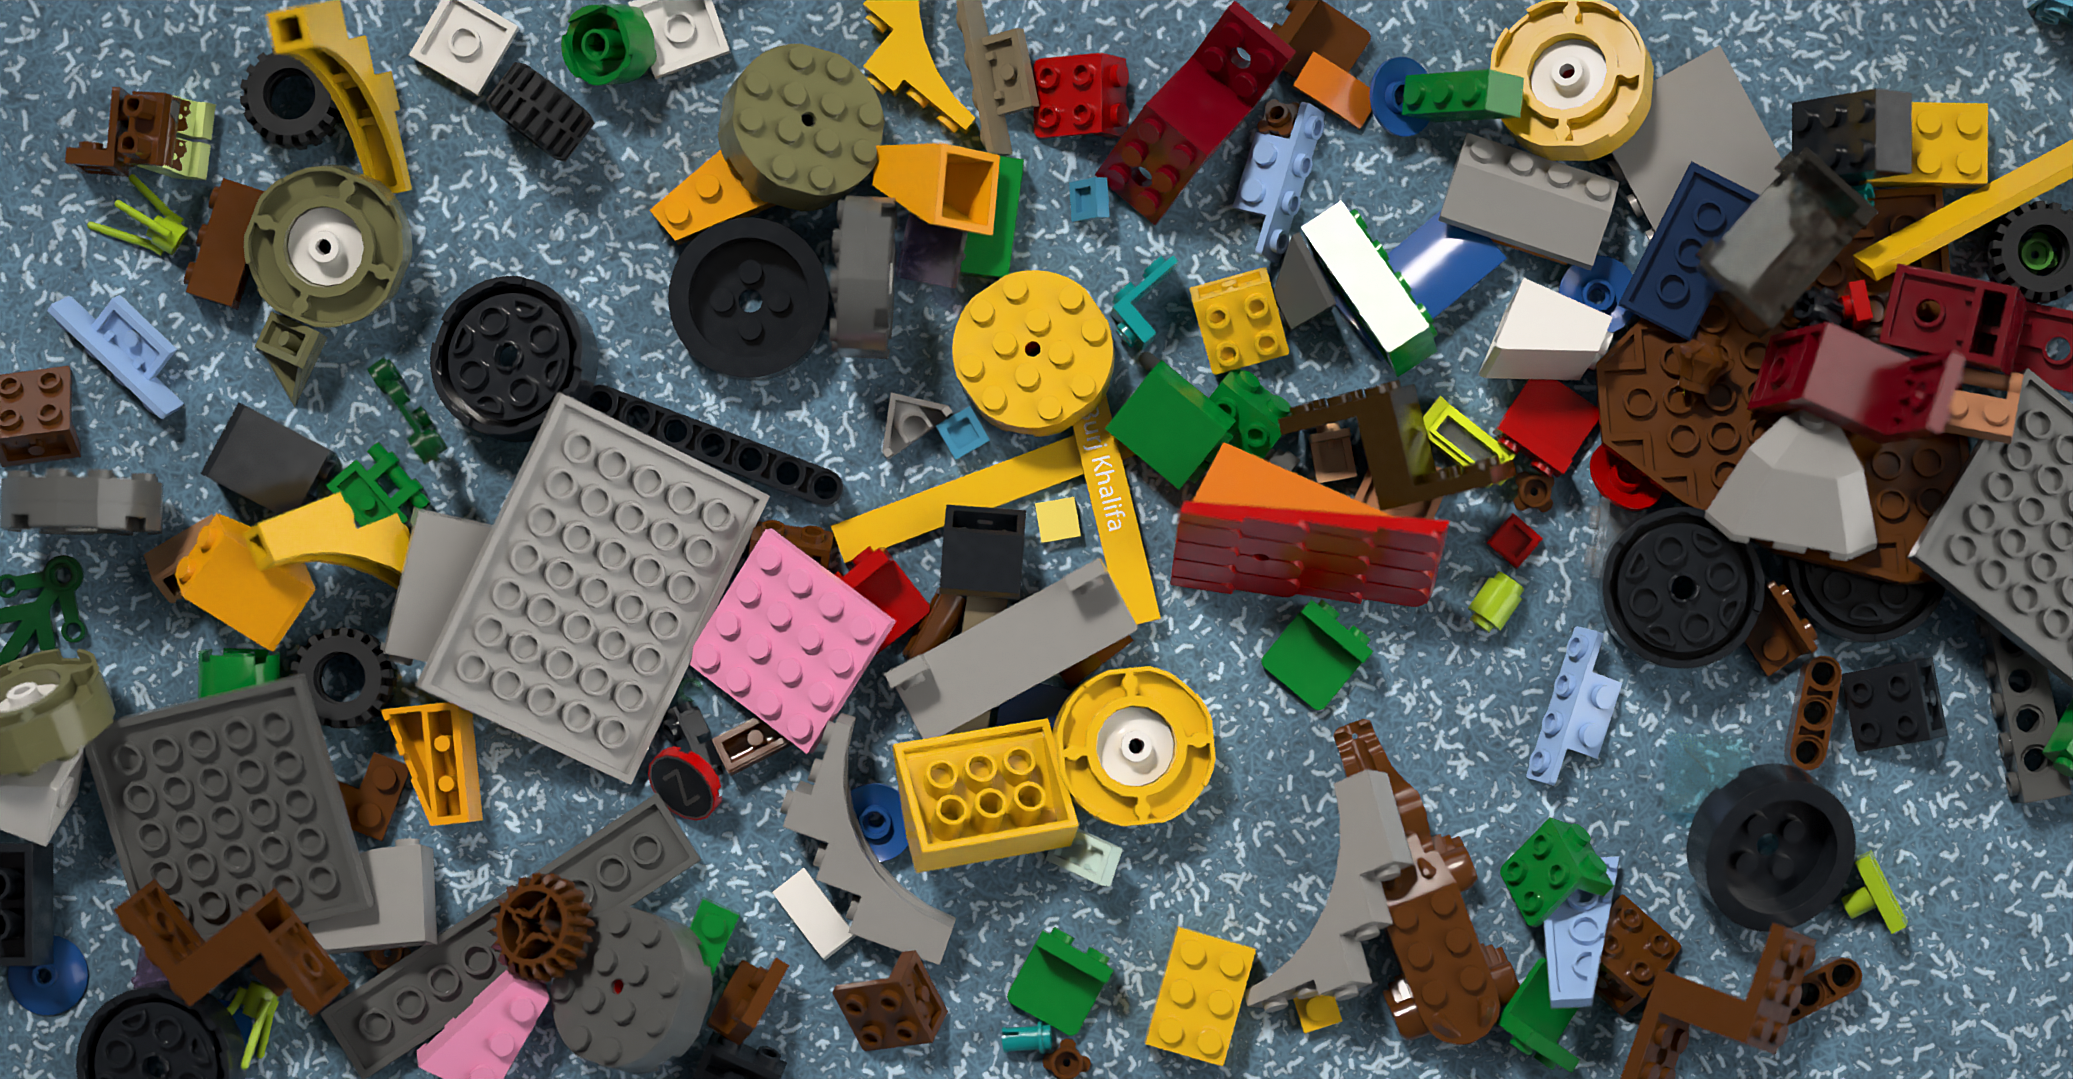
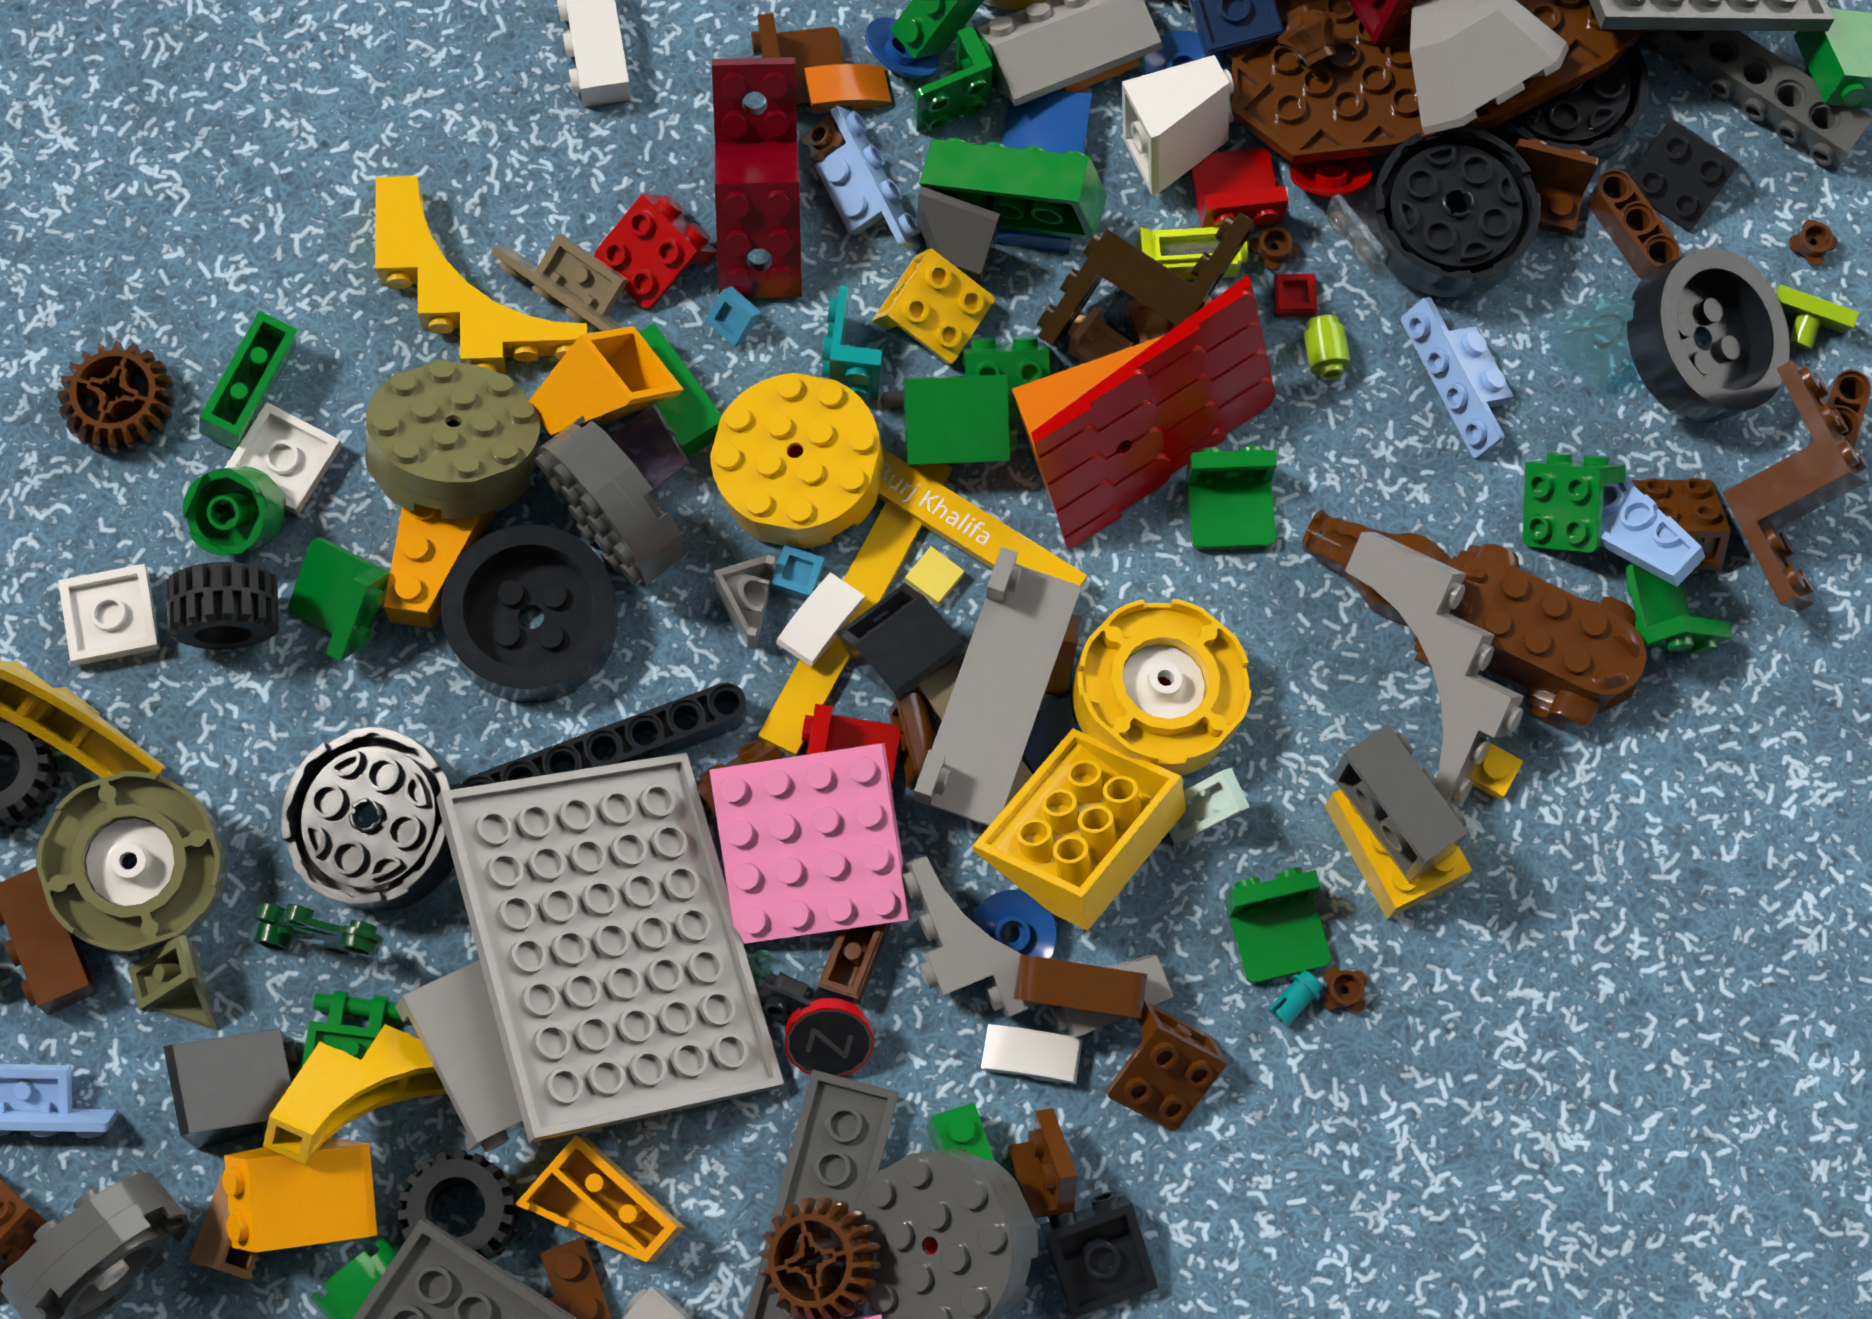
camera: 50 degrees left, 15 degrees down
(630, 172) = (339, 595): none -> green bracket
(877, 905) = (1080, 986): none -> reddish brown beam
(945, 483) = (820, 618): none -> white slope
(1205, 982) = (1400, 802): none -> dark grey brick
(1414, 179) = (961, 92): none -> green bracket
(1946, 850) = (1820, 234): none -> reddish brown plate

